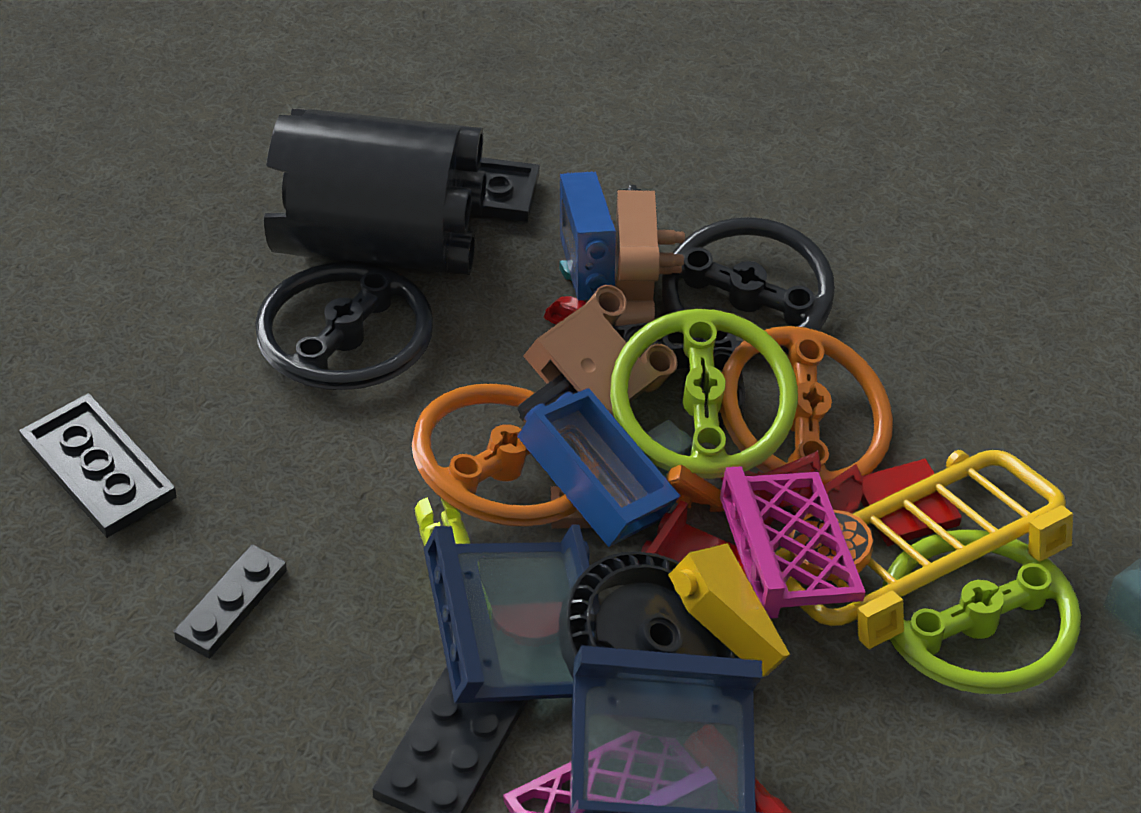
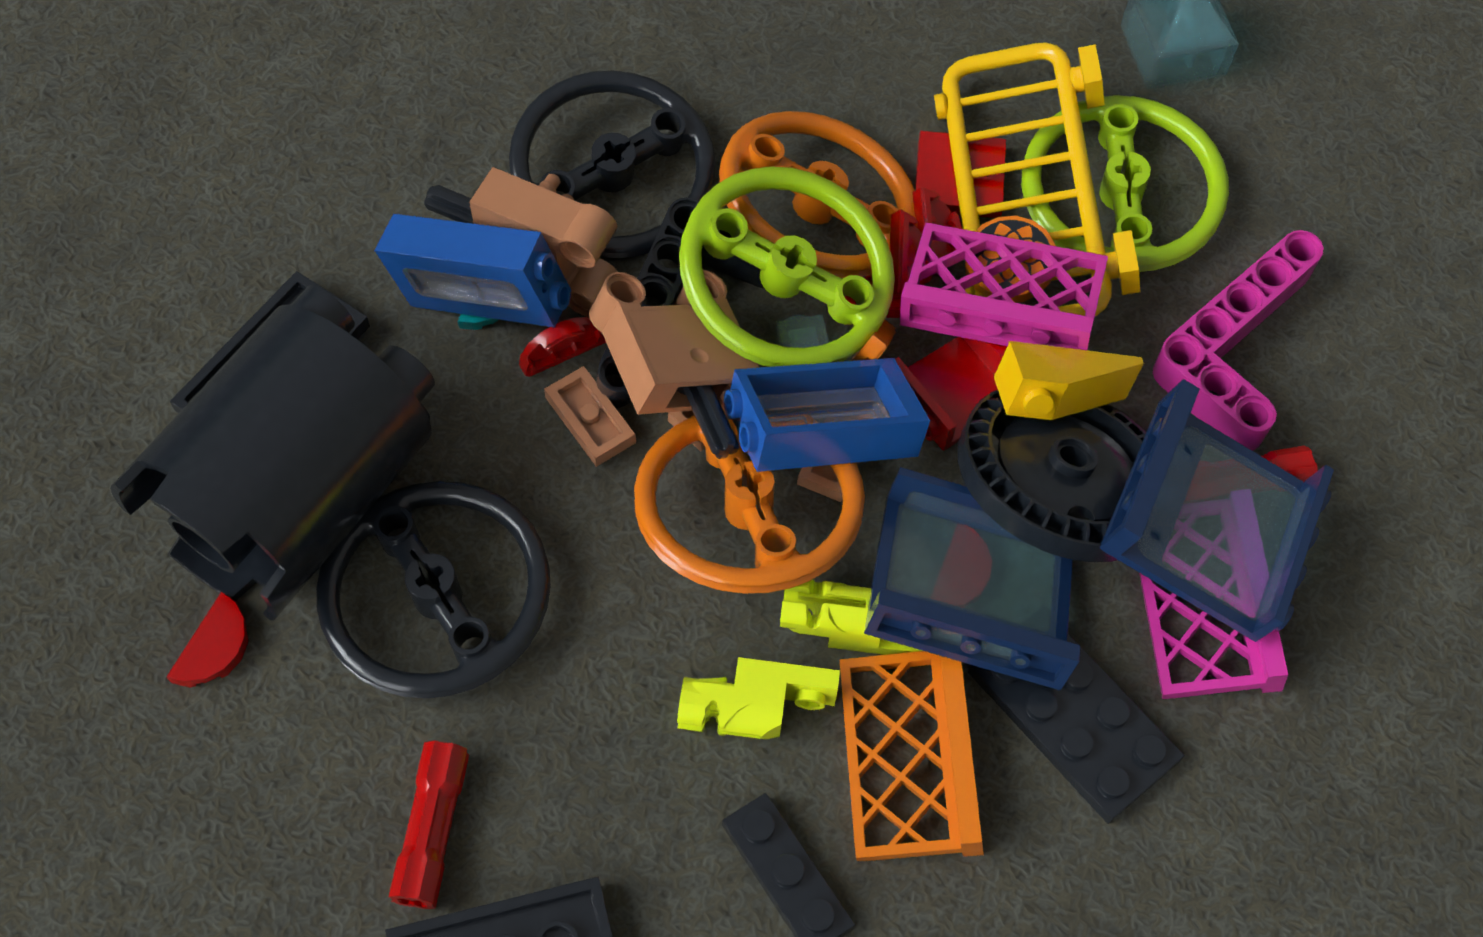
camera: 65 degrees left, 15 degrees up
(201, 384) = (421, 862): none -> red axle
(242, 243) = (214, 647): none -> red tile
(353, 526) = (756, 699): none -> neon yellow plate
(375, 663) = (955, 758): none -> orange fence
(513, 367) = (590, 416): none -> nougat plate
(886, 736) = (1256, 295): none -> dark pink beam

